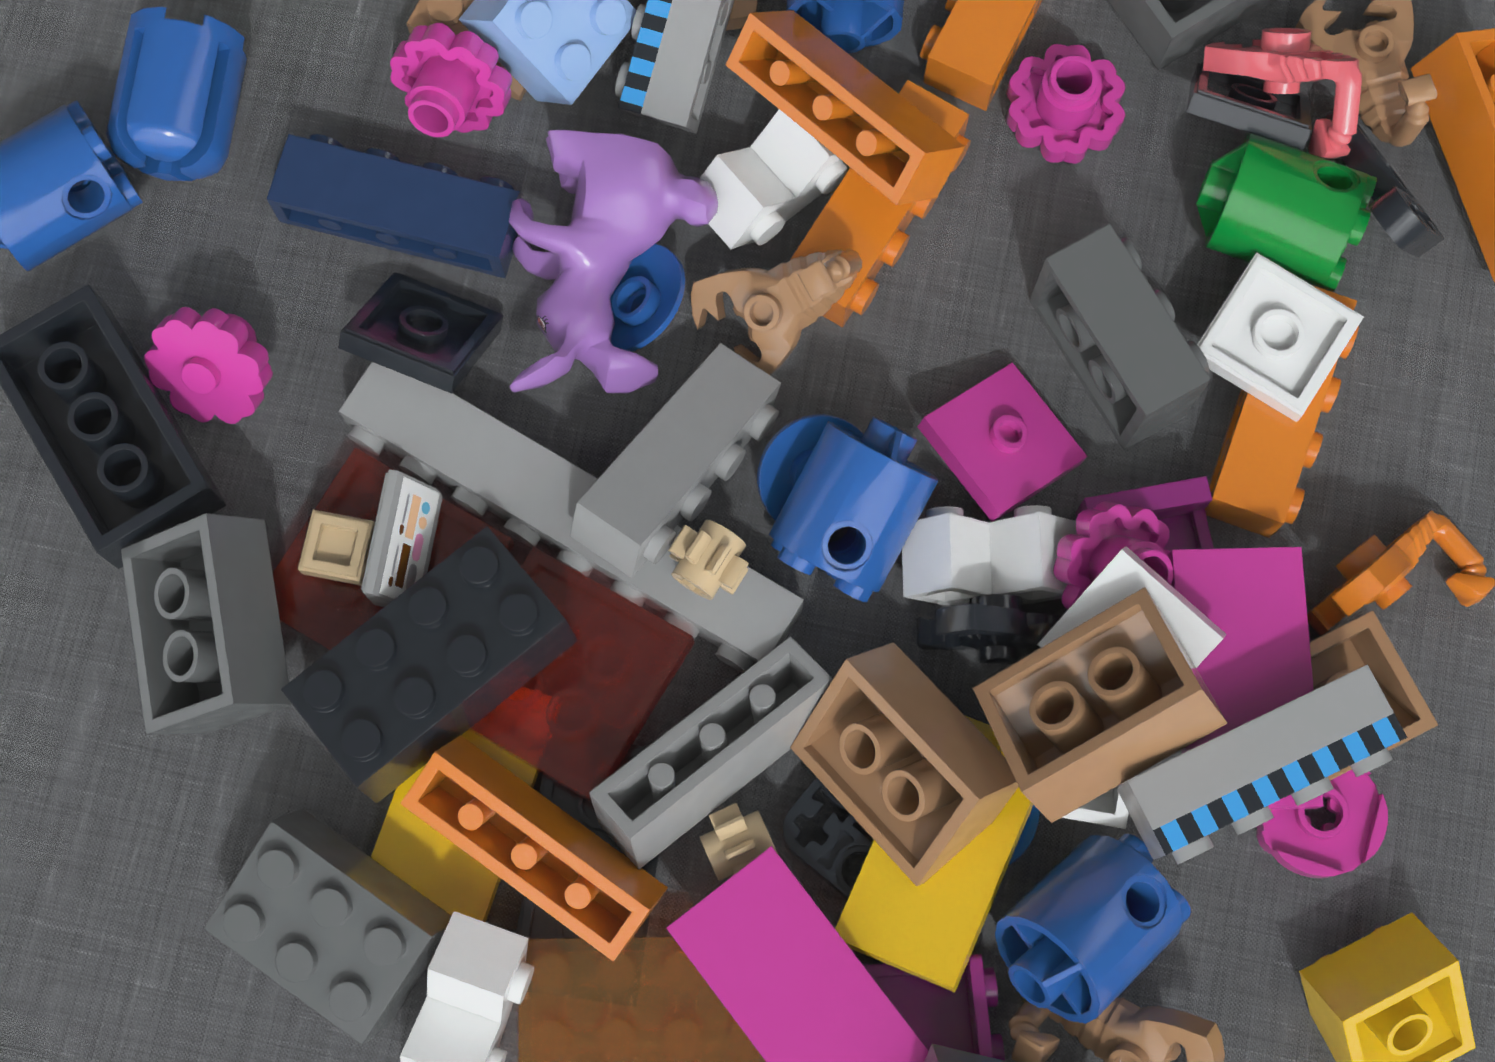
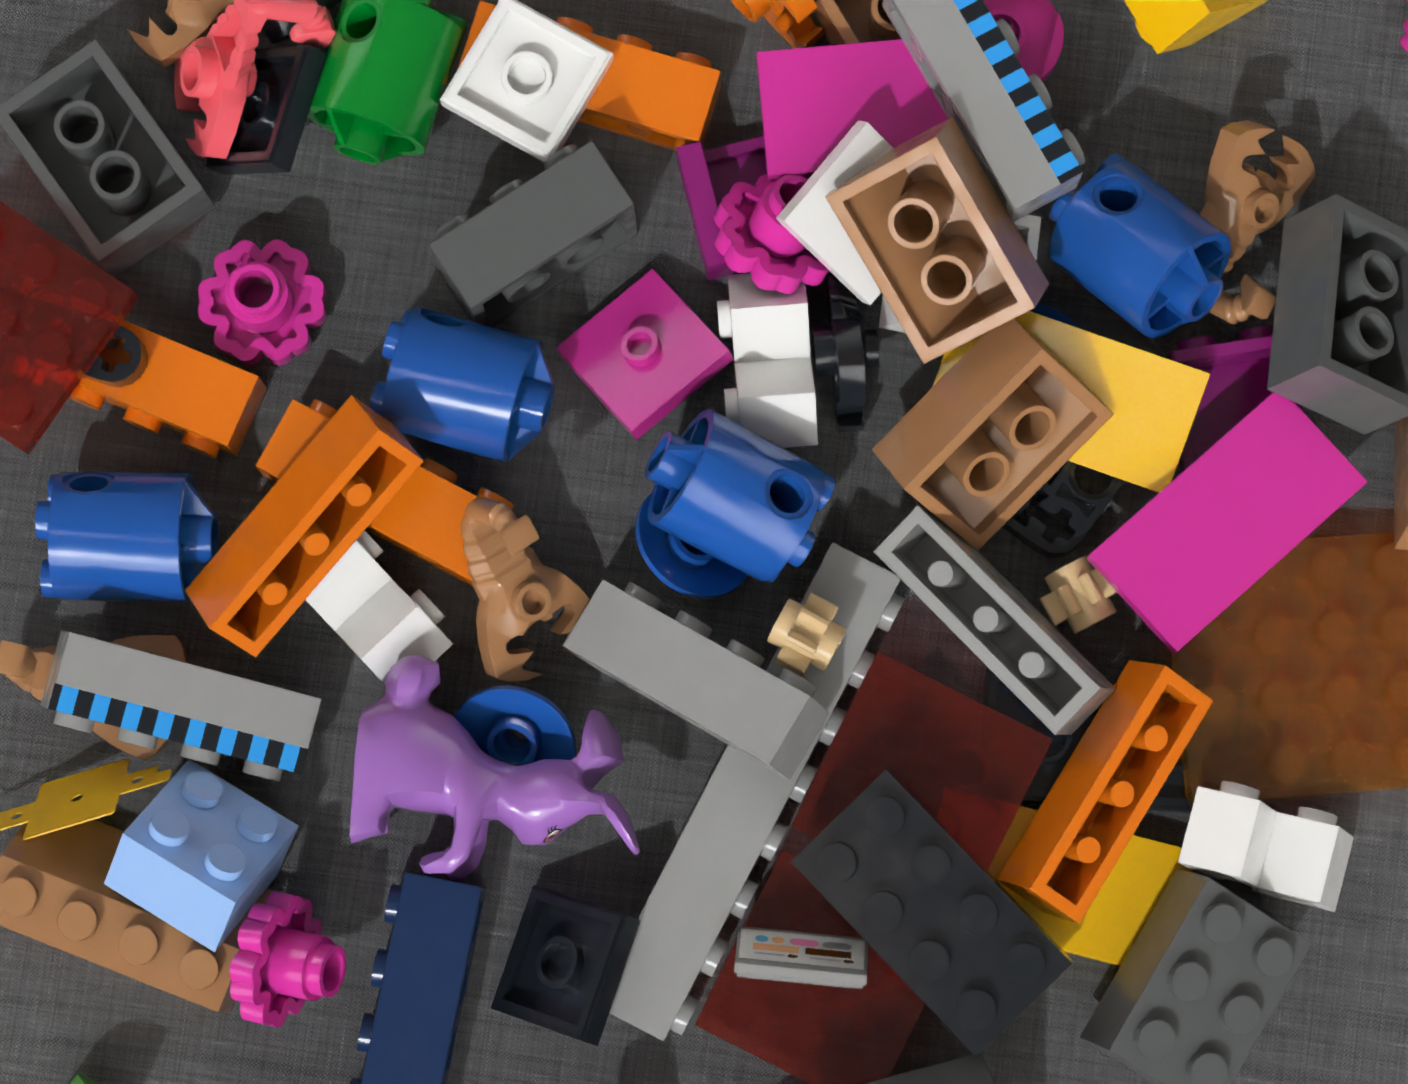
camera: 90 degrees left, 5 degrees up
(336, 547) = (808, 1028): tan tile -> none
(977, 263) = (464, 384): none -> blue cylinder

